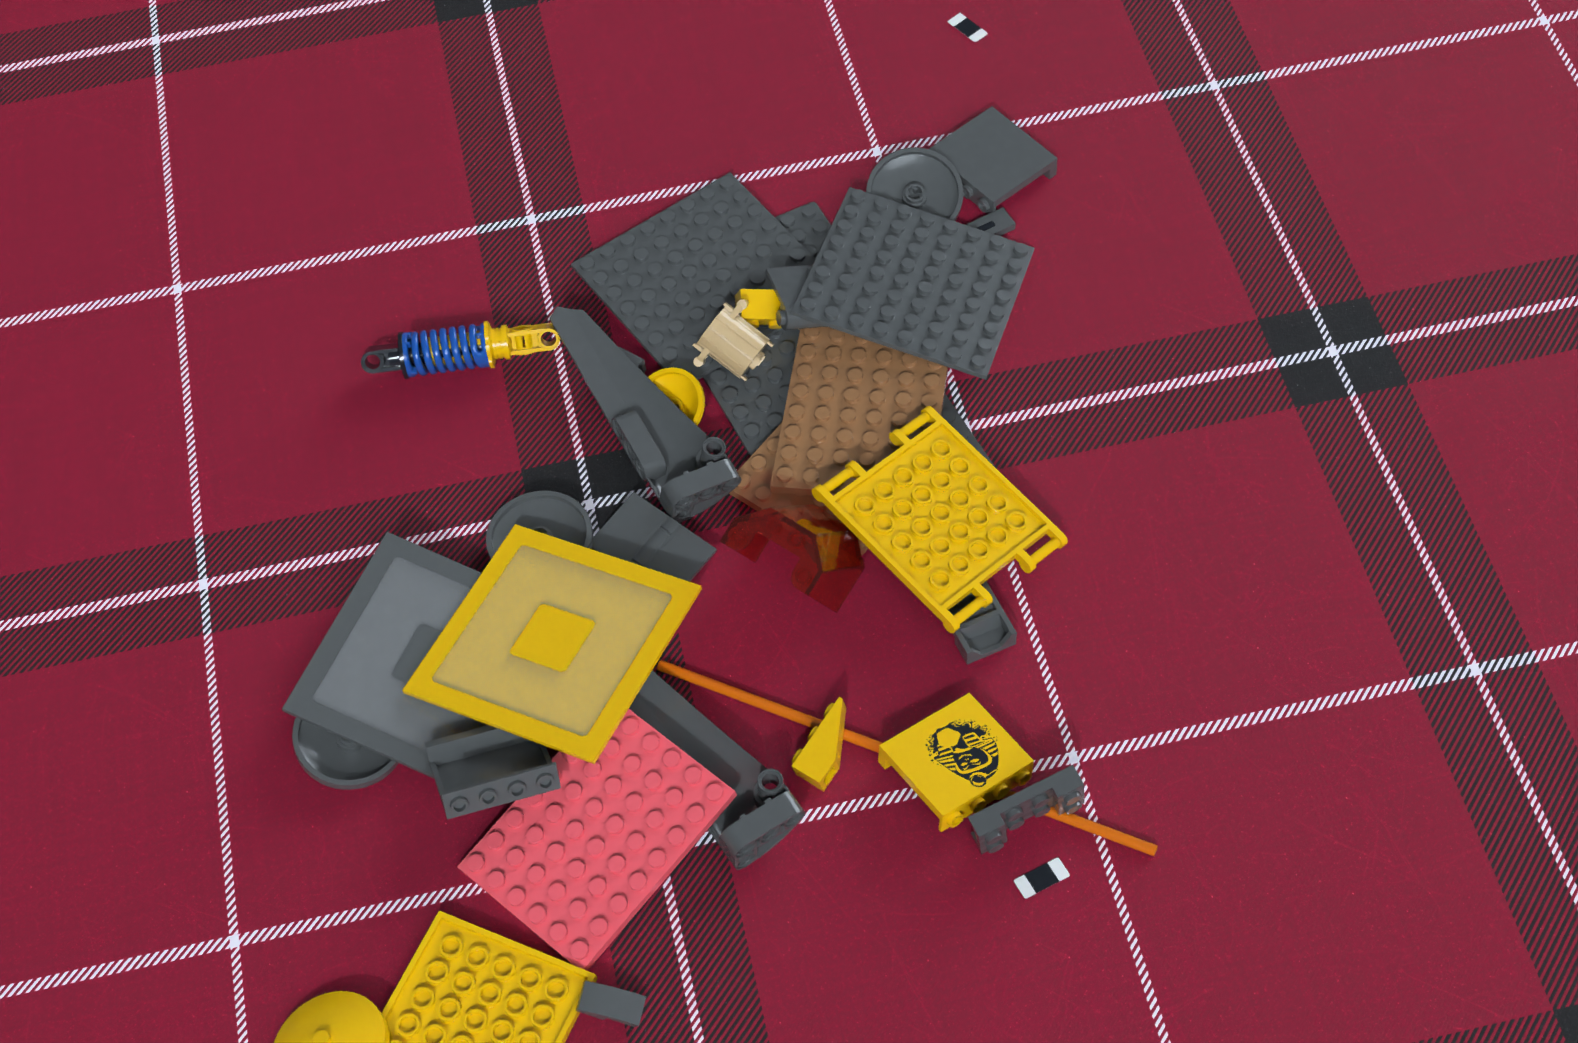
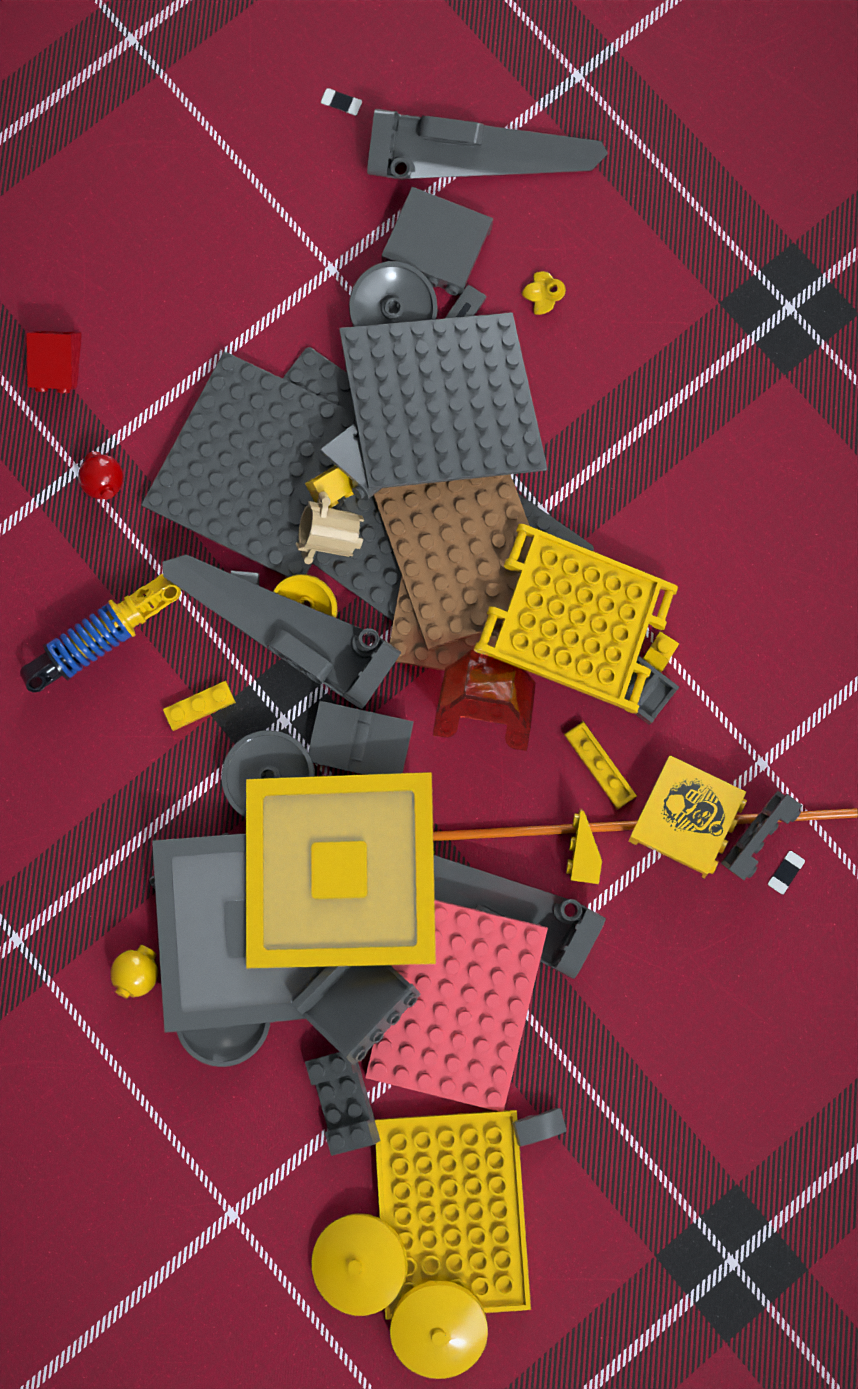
camera: 30 degrees left, 25 degrees up
(289, 654) = (134, 972): none -> yellow brick
(420, 874) = (343, 1103): none -> dark grey piece
(515, 454) = (199, 705): none -> yellow plate
(548, 226) = (100, 476): none -> red brick
(567, 120) = (53, 360): none -> red slope
(891, 680) = (600, 765): none -> yellow tile
(1018, 600) = (660, 651): none -> yellow slope
(1069, 100) = (465, 148): none -> dark grey panel
(1077, 242) = (541, 292): none -> yellow plate

